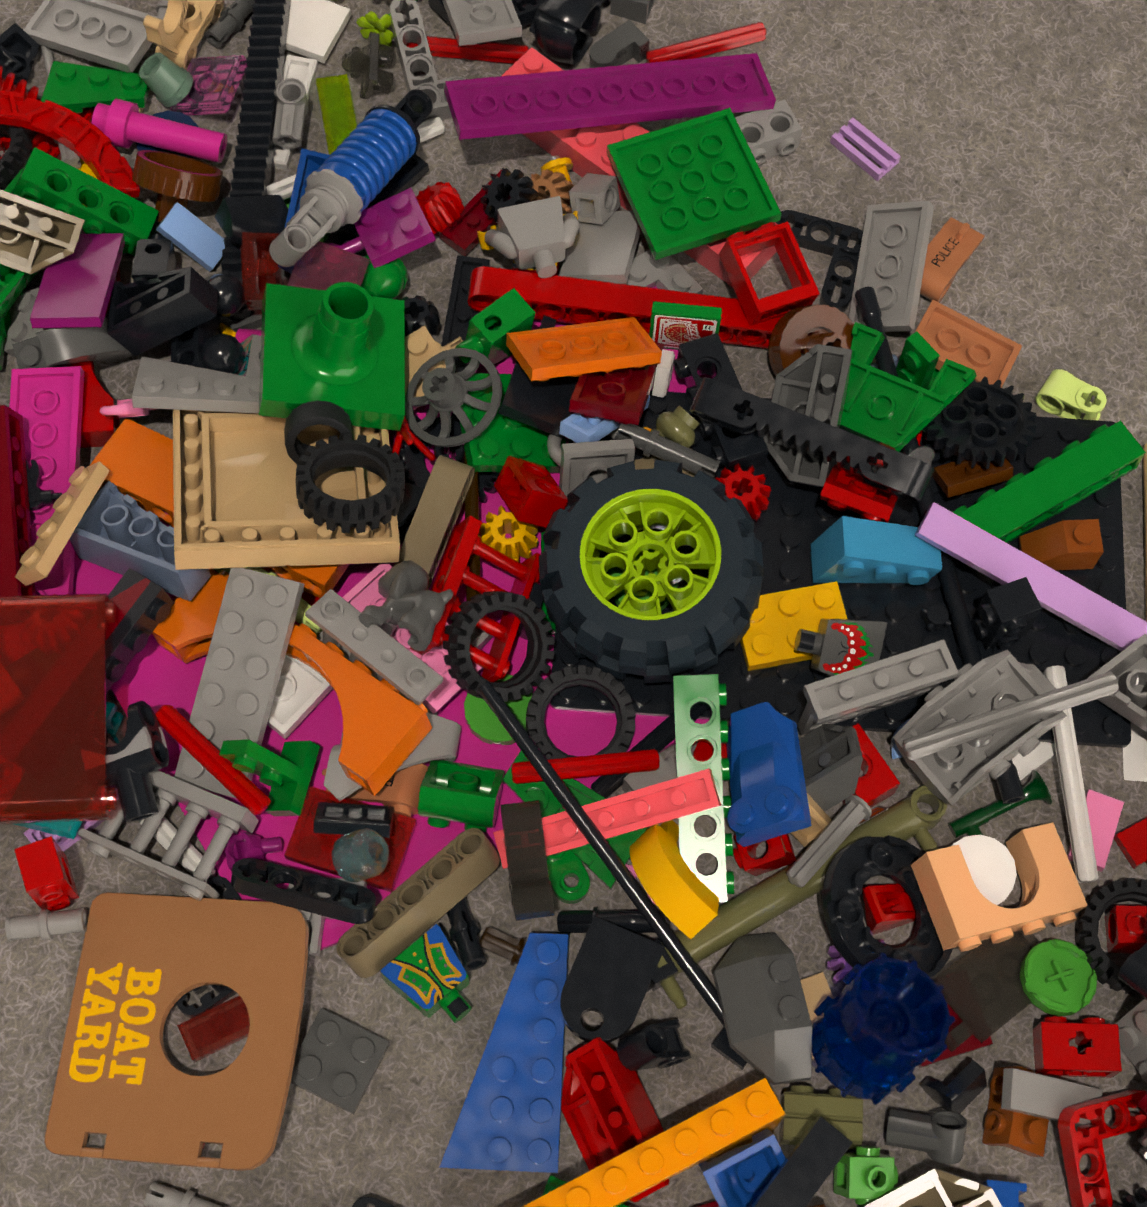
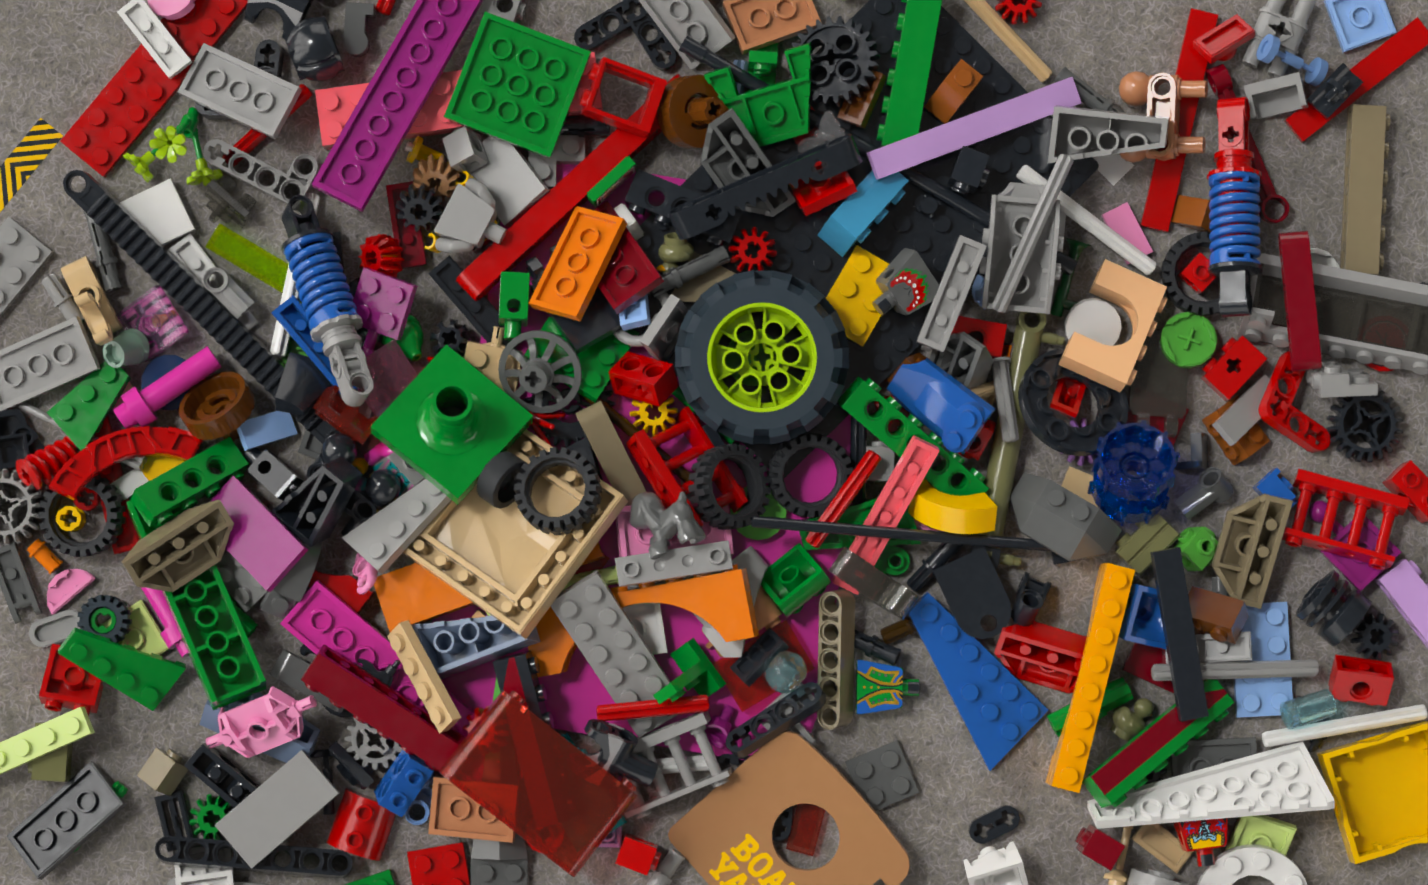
camera: 45 degrees left, 20 degrees up
(695, 266) = (584, 126): none -> black pin

